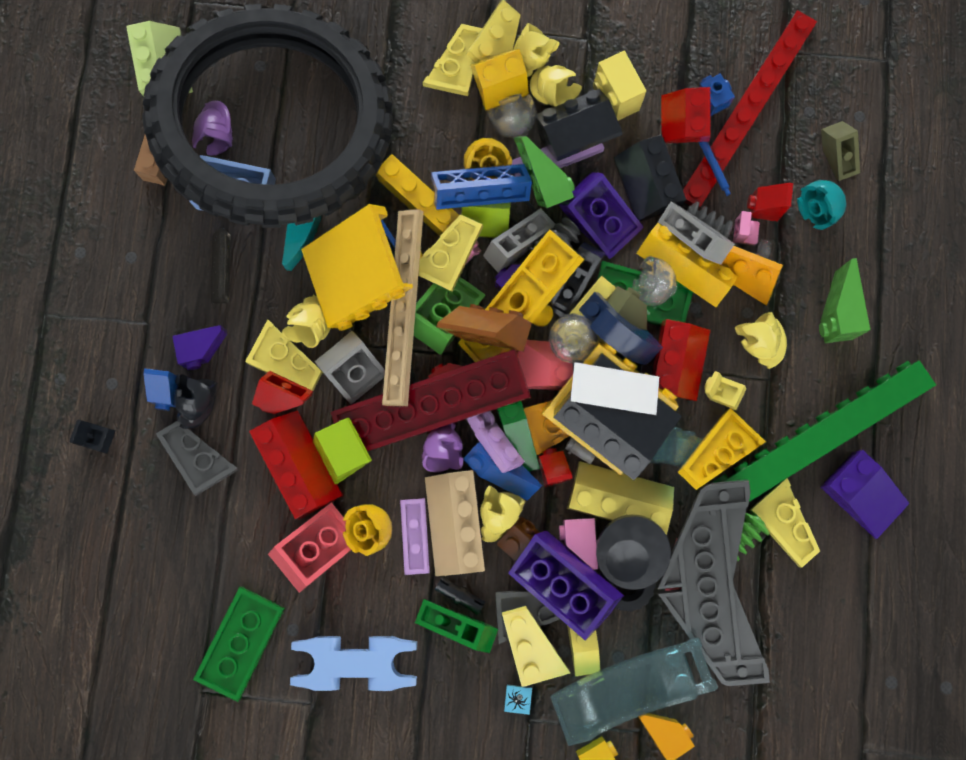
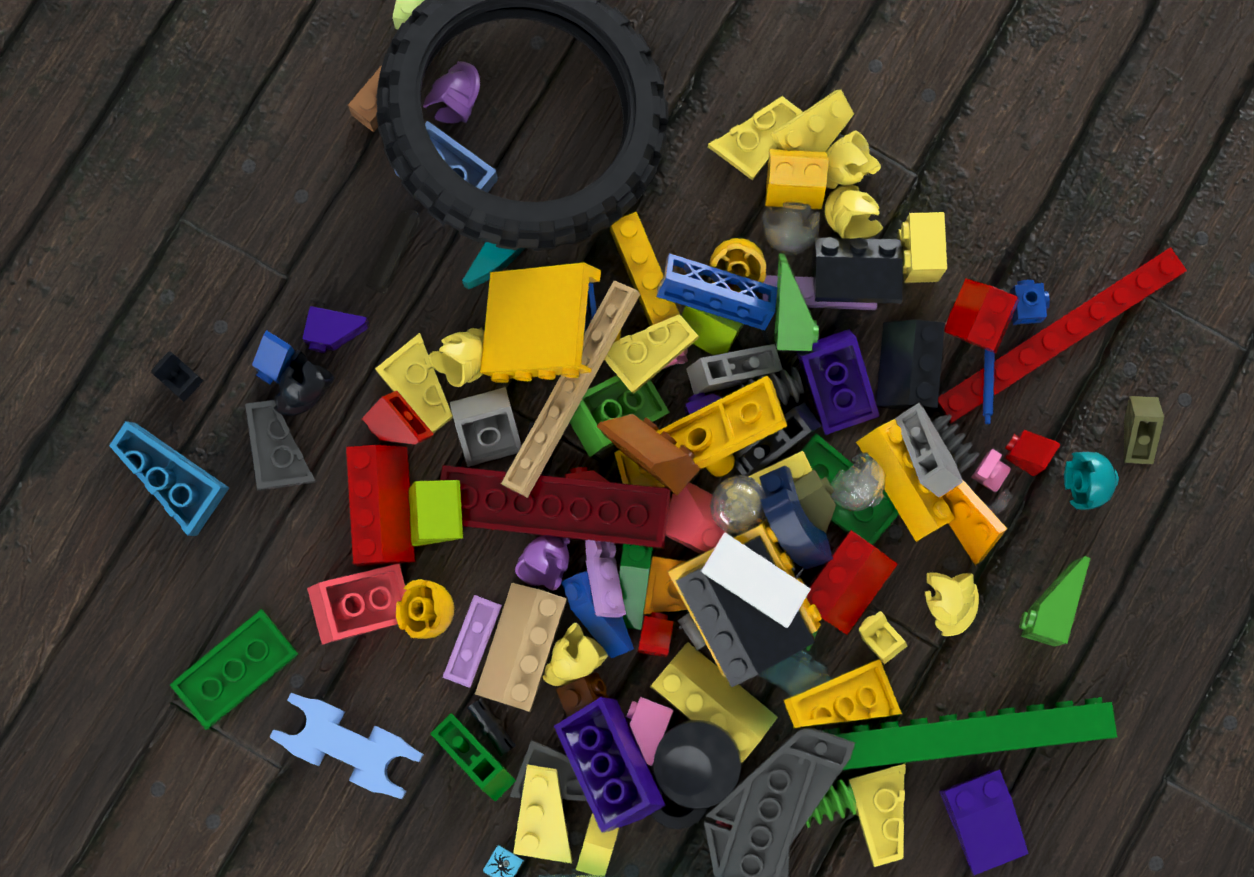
camera: 20 degrees right, 0 degrees up
(127, 518) = (178, 483): none -> dark azure wedge

